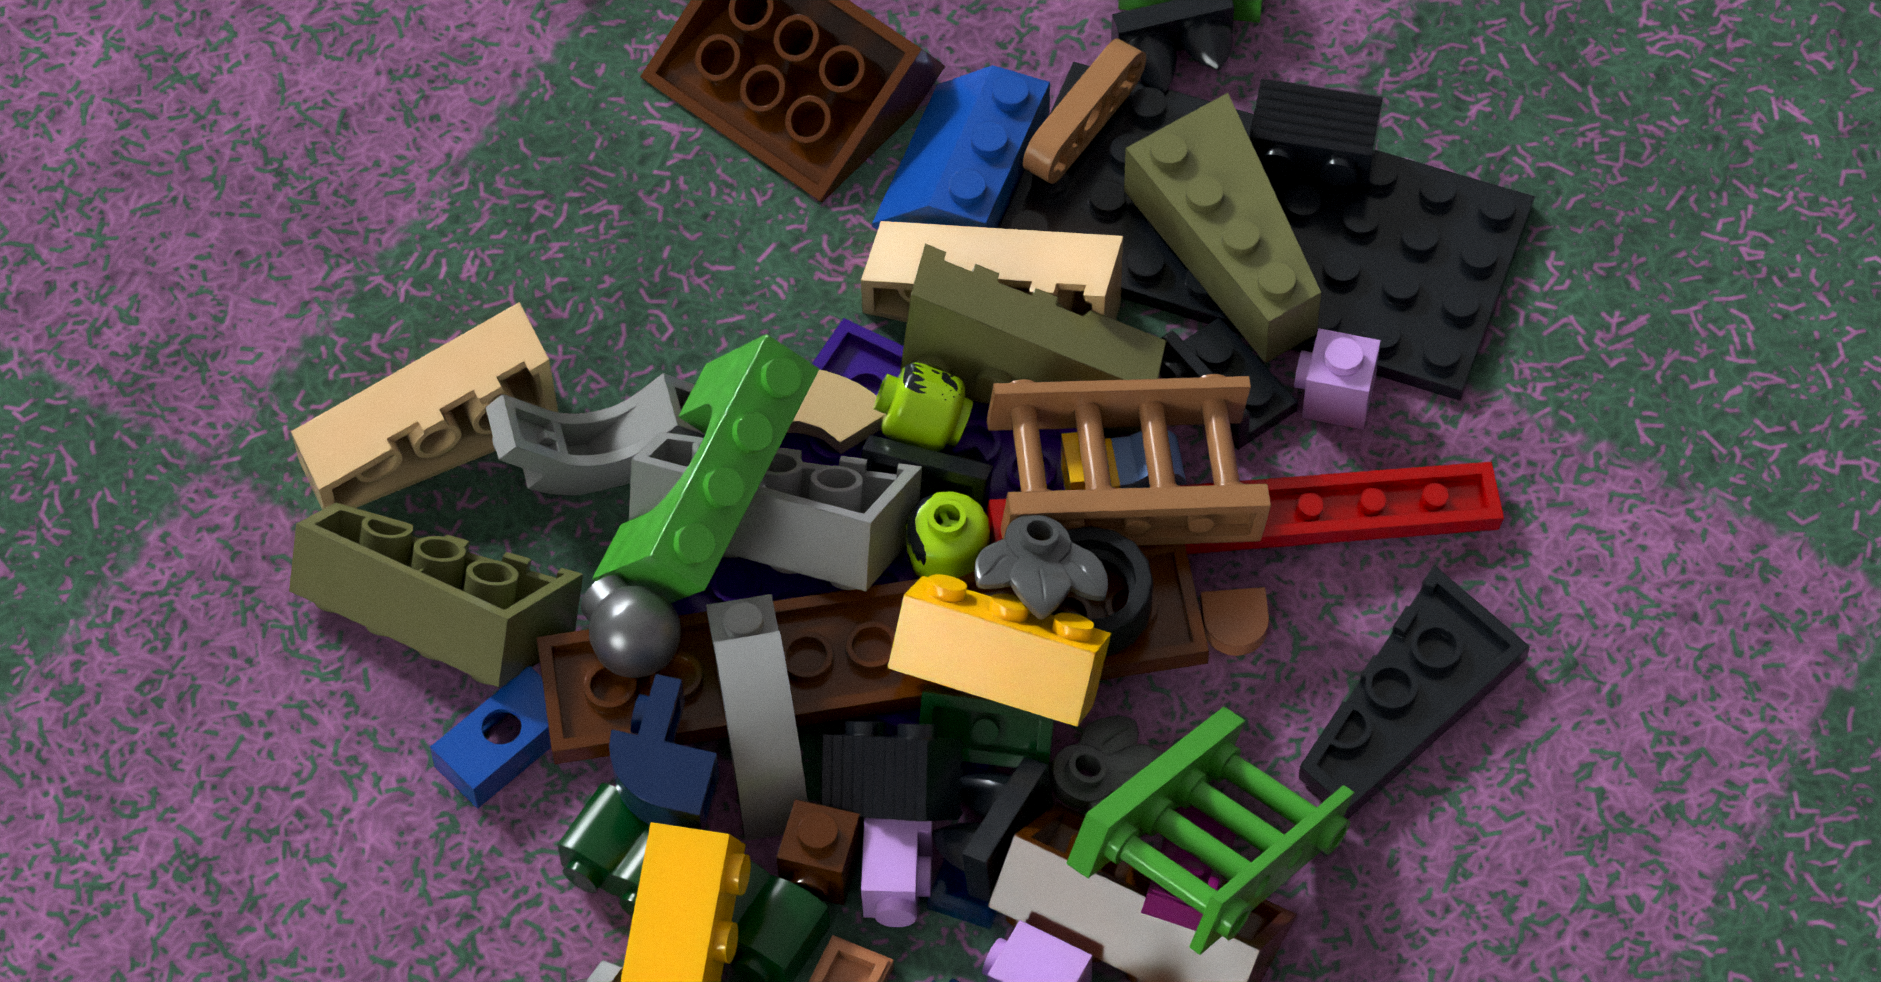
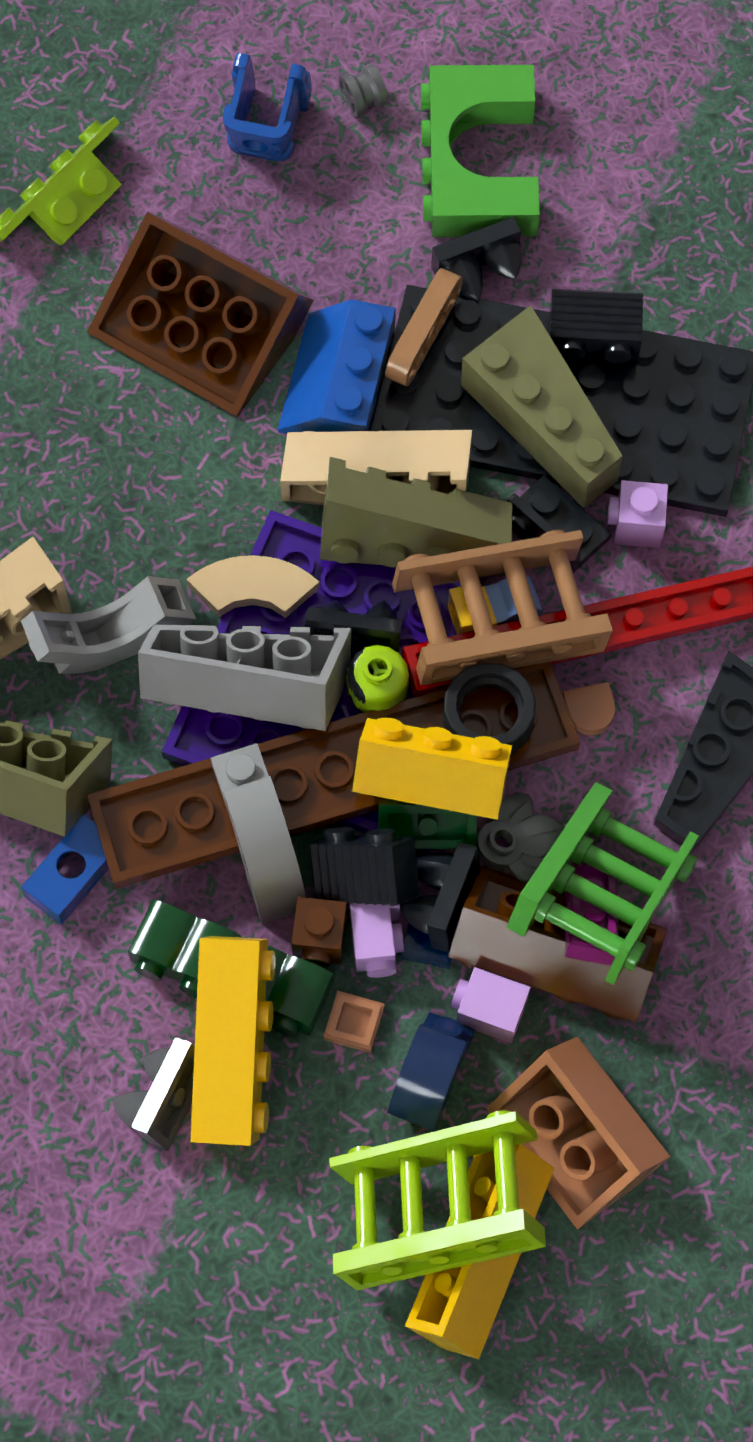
camera: 10 degrees left, 10 degrees up
(630, 627) = (157, 782): flat silver piece -> none
(654, 774) = (193, 897): dark blue brick -> none
(744, 411) = (222, 601): bright green arch -> none
(923, 407) = (344, 580): lime head -> none
(1040, 565) = (455, 706): dark grey plate -> none

